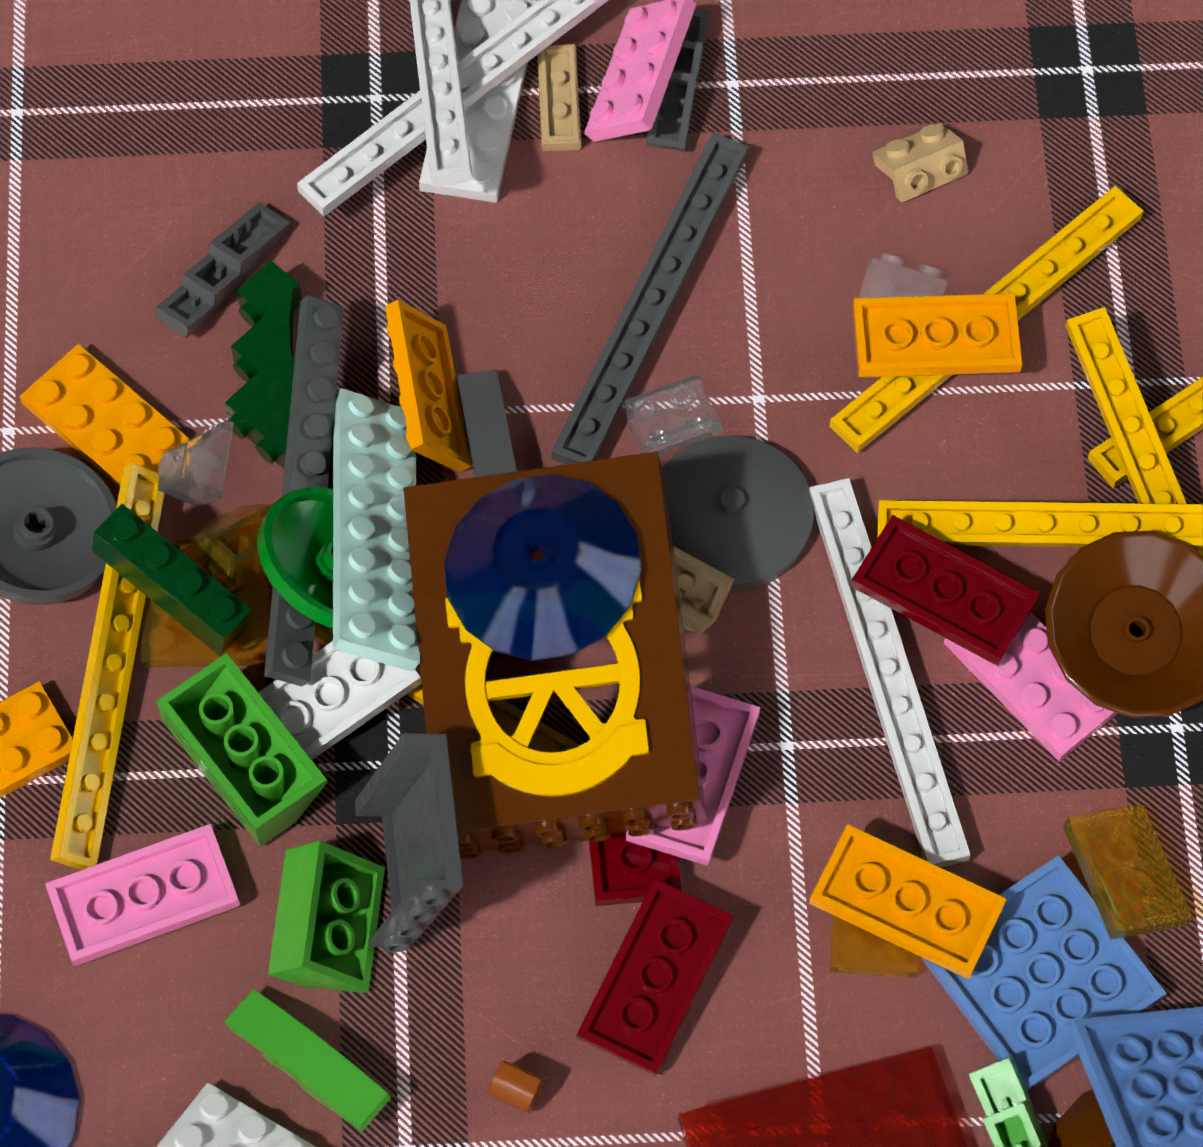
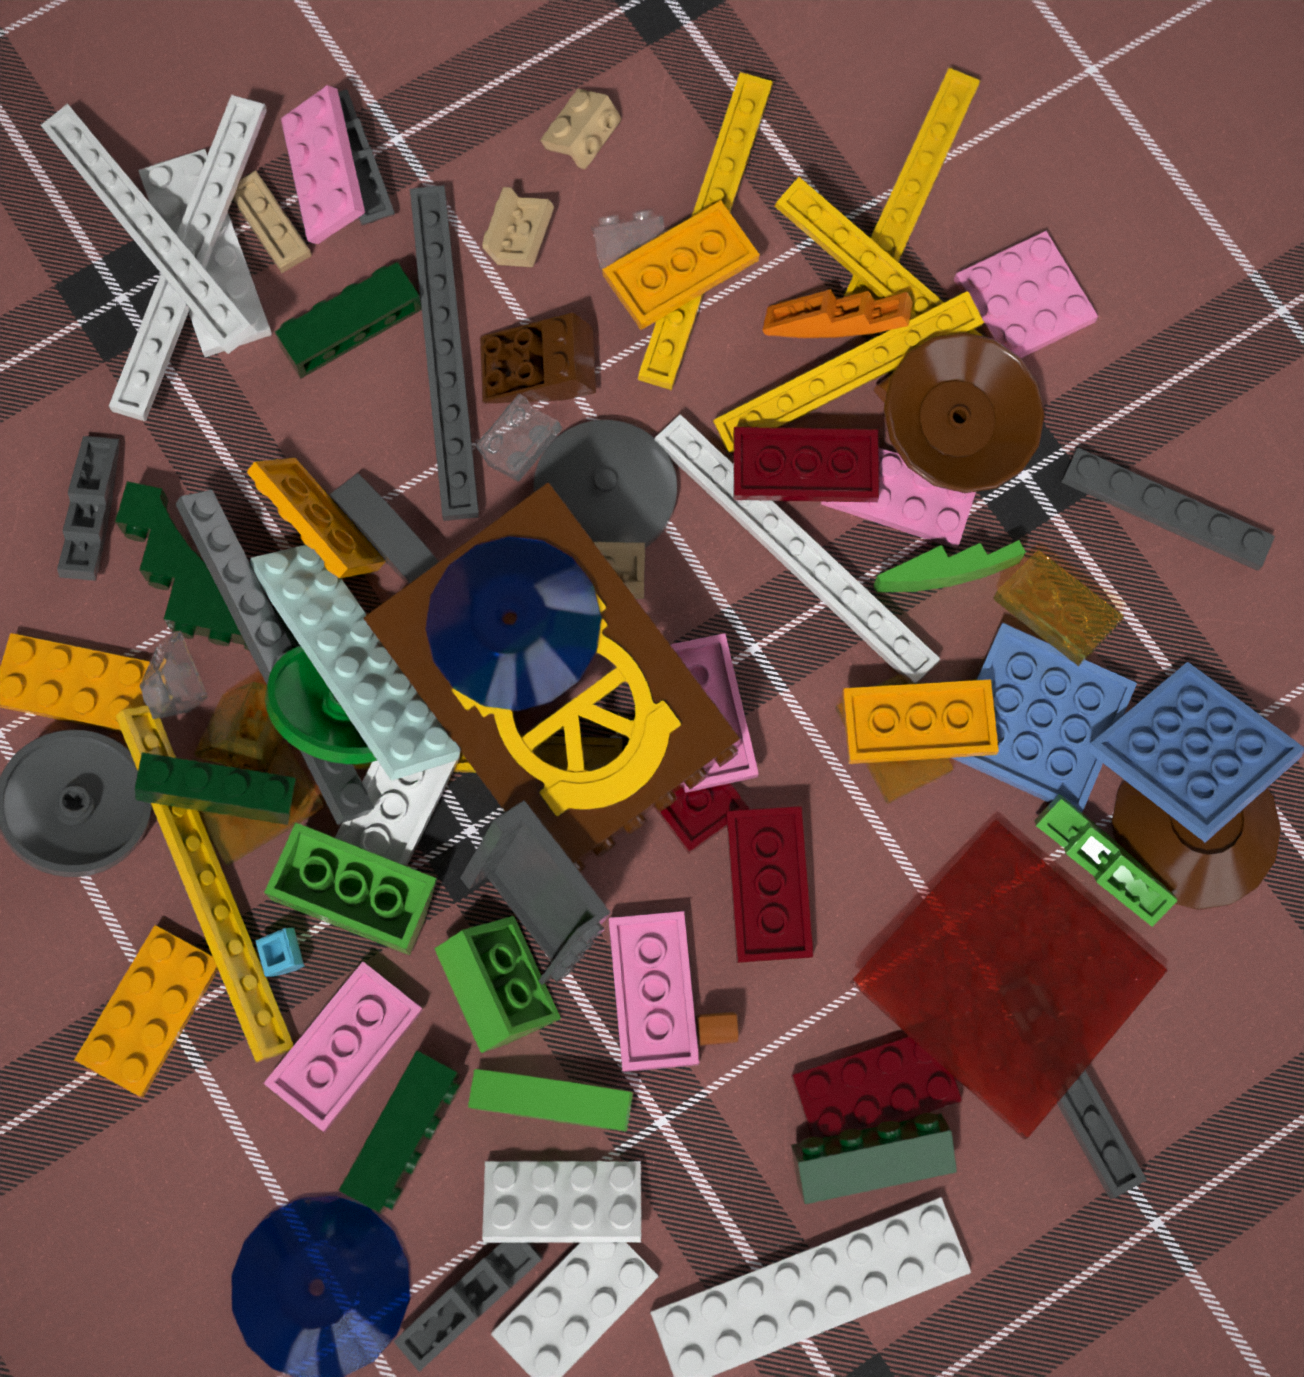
camera: 35 degrees left, 10 degrees up
(138, 773) = (280, 952): none -> medium azure brick
(144, 1006) = (399, 1133): none -> dark green brick
(474, 1016) = (653, 991): none -> bright pink plate
(576, 223) = (348, 319): none -> dark green brick
(741, 357) = (539, 361): none -> reddish brown slope
(794, 221) = (517, 229): none -> tan bracket
(1018, 767) = (936, 570): none -> bright green slope
(1058, 461) = (827, 317): none -> orange slope

